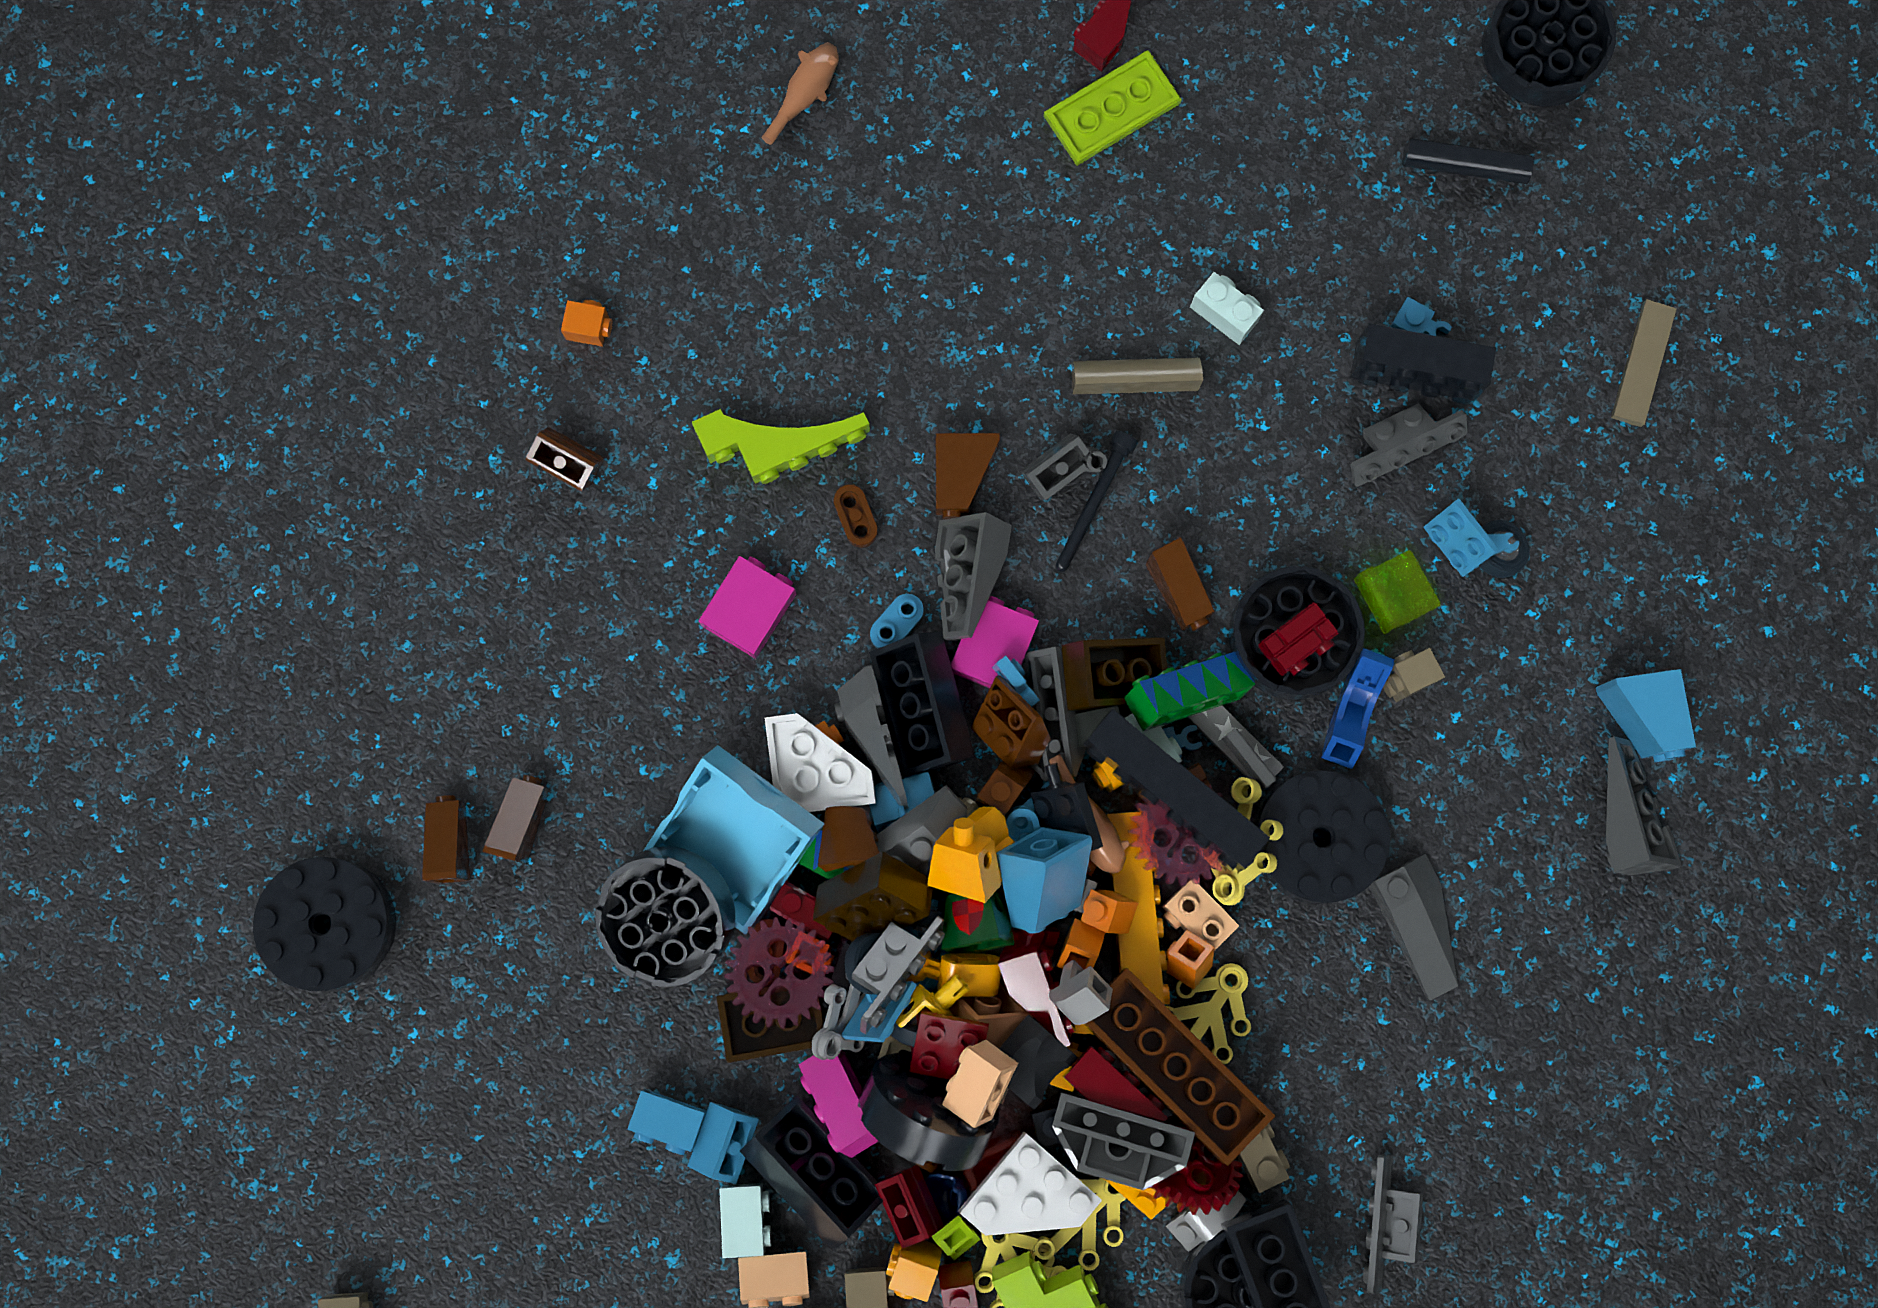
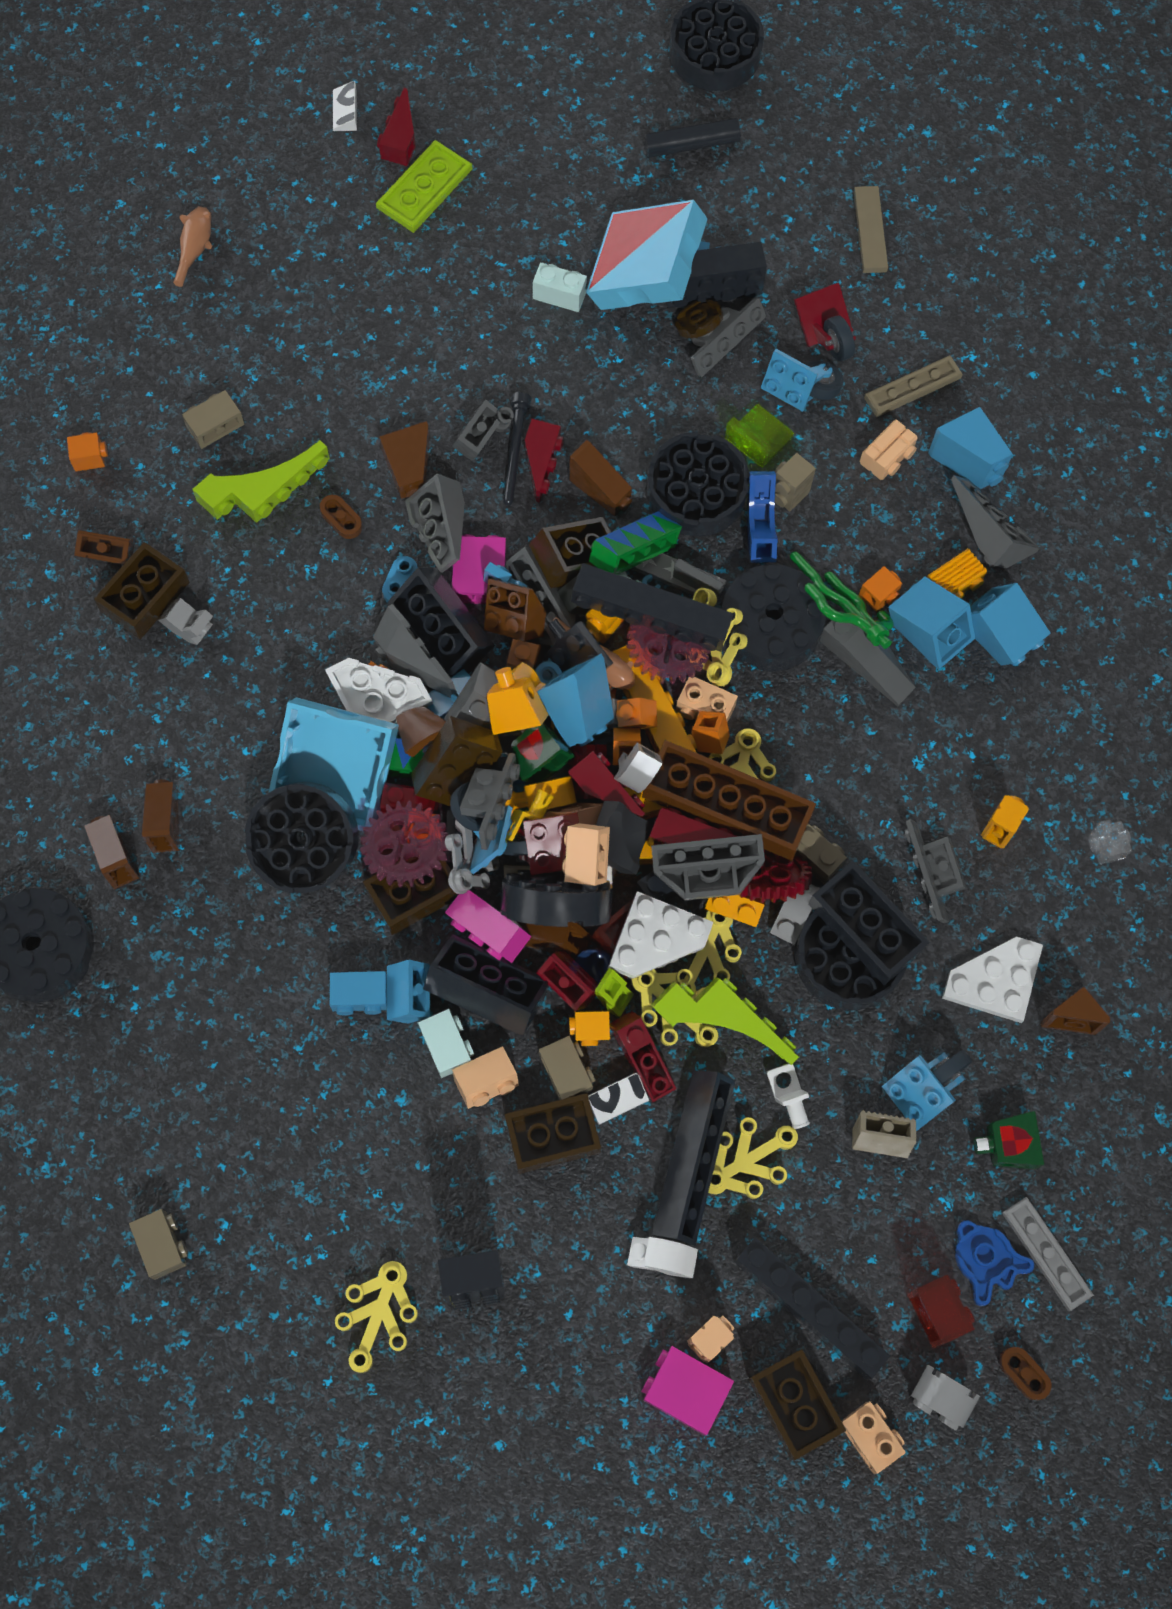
camera: 20 degrees left, 10 degrees down
(589, 530) = (142, 590): none -> dark brown brick
(628, 586) = (186, 621): none -> light grey brick
(747, 335) = (213, 419): none -> dark tan brick
(748, 606) = (283, 605): dark pink brick -> none
(1123, 515) = (540, 449): none -> dark red slope
(1136, 375) = (512, 354): dark tan brick -> none
(1299, 639) = (700, 479): dark red brick -> none
(1348, 312) = (647, 255): none -> medium azure tile
(1381, 413) = (699, 319): none -> dark brown tile
(1424, 878) = (849, 601): none -> green plant
(1467, 849) = (881, 589): none -> orange brick
(1496, 1202) = (1005, 821): none -> light orange brick
(1512, 913) = (933, 621): none -> dark azure slope
(1539, 474) = (827, 321): none -> dark red plate
(1548, 670) = (888, 450): none -> light nougat brick
(1563, 867) = (960, 574): none -> light orange brick
(1597, 949) = (1007, 624): none -> dark azure slope
(1612, 593) = (913, 386): none -> dark tan tile
(1612, 1272) = (1110, 841): none -> clear brick

